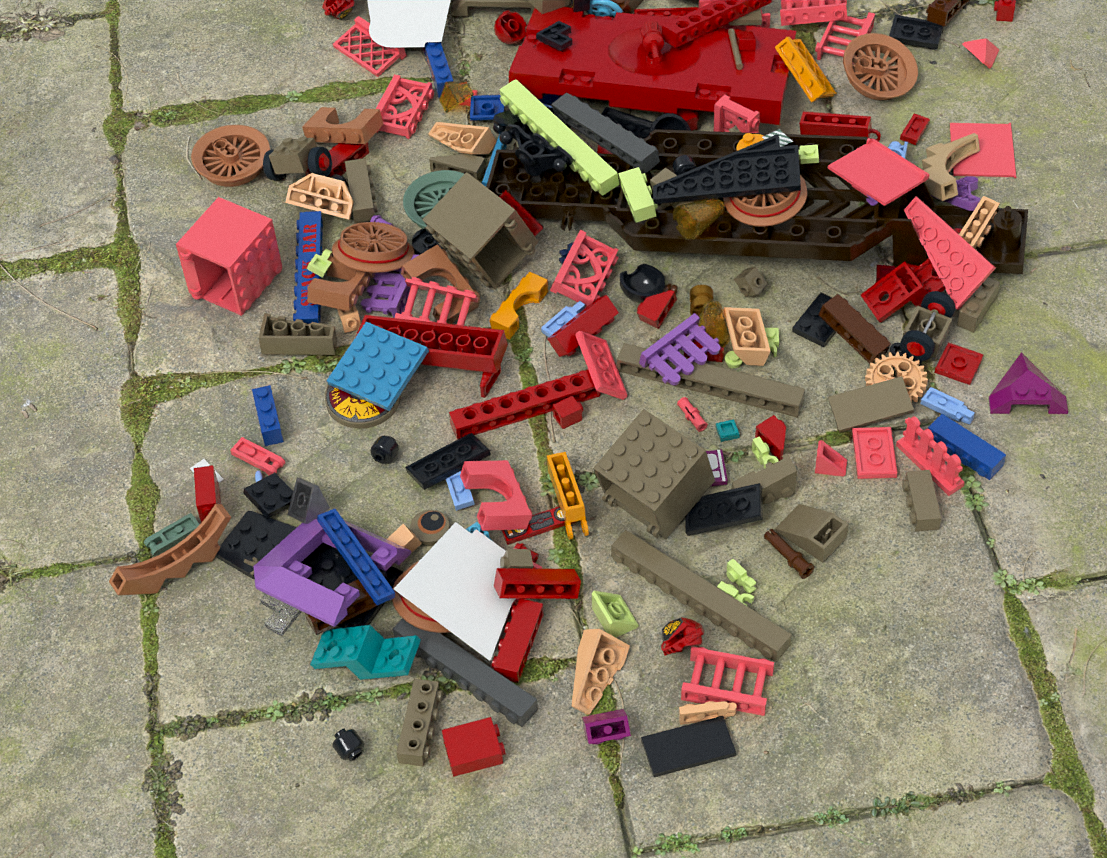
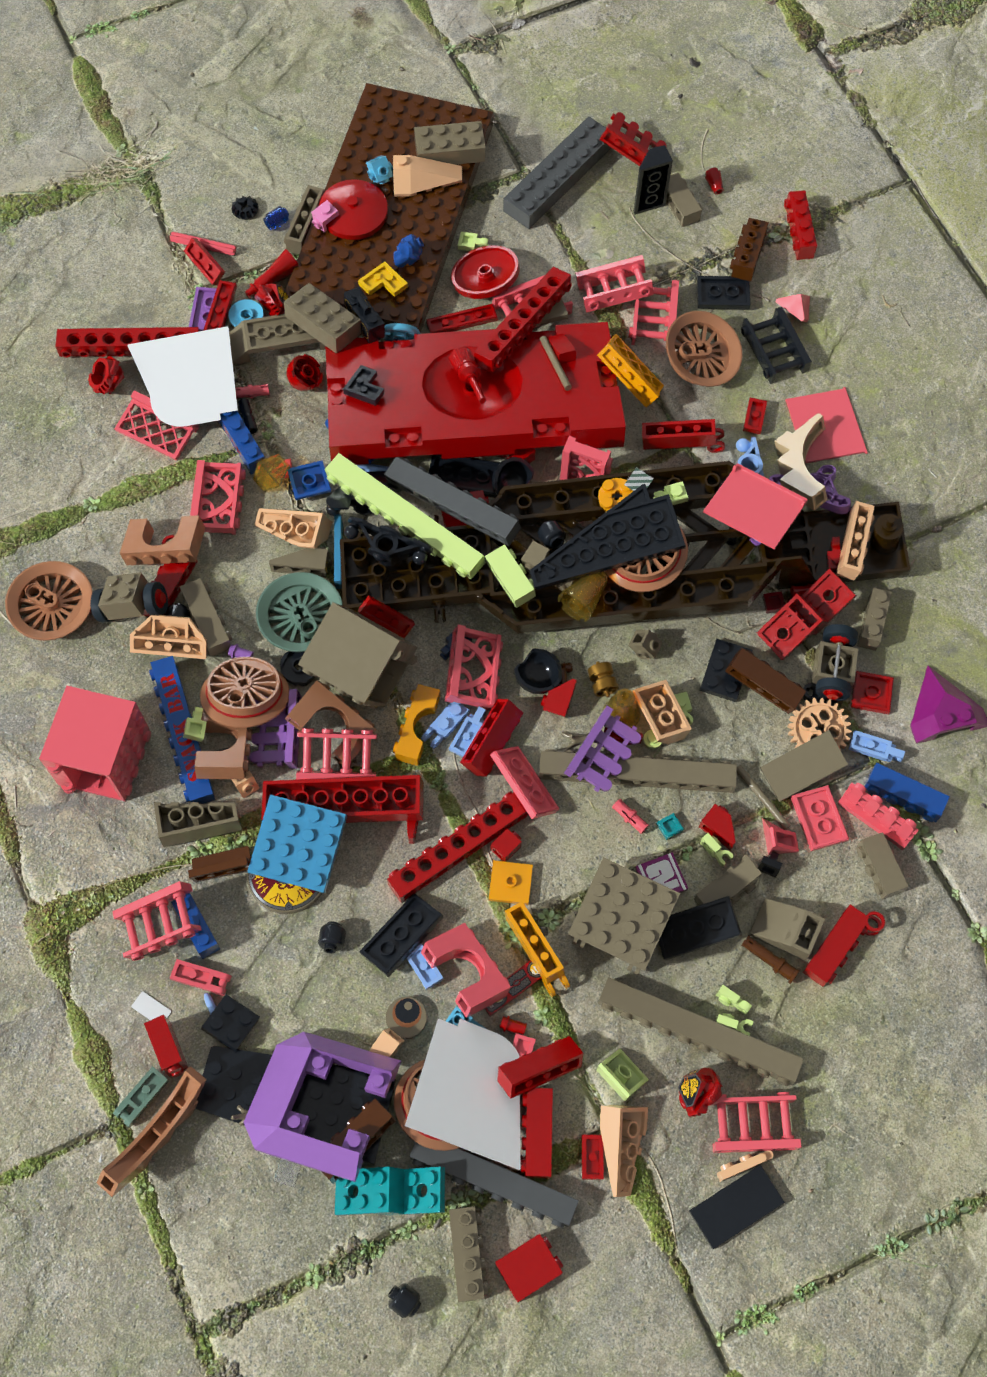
camera: 20 degrees left, 15 degrees up
(230, 387) = (144, 907): none -> coral fence
(303, 376) = (220, 864): none -> reddish brown panel
(307, 501) = (272, 1027): flat silver slope -> none
(356, 556) = (352, 1092): blue plate -> none
(451, 53) = (247, 414): none -> black piece
(460, 36) = (252, 391): none -> coral pin
(516, 559) = (512, 1047): dark tan brick -> none
(544, 311) = (445, 723): none -> light blue hinge
(562, 439) = (510, 882): none -> light orange plate
(562, 673) = (592, 1157): none -> red plate
(606, 726) = (654, 1211): magenta brick -> none
(812, 477) = (770, 865): none -> black tile
(824, 425) = (763, 798): none -> dark tan bar
(859, 553) = (839, 942): none -> red hinge
(952, 257) = (845, 582): coral wing -> none
(966, 71) = (787, 334): none -> black fence

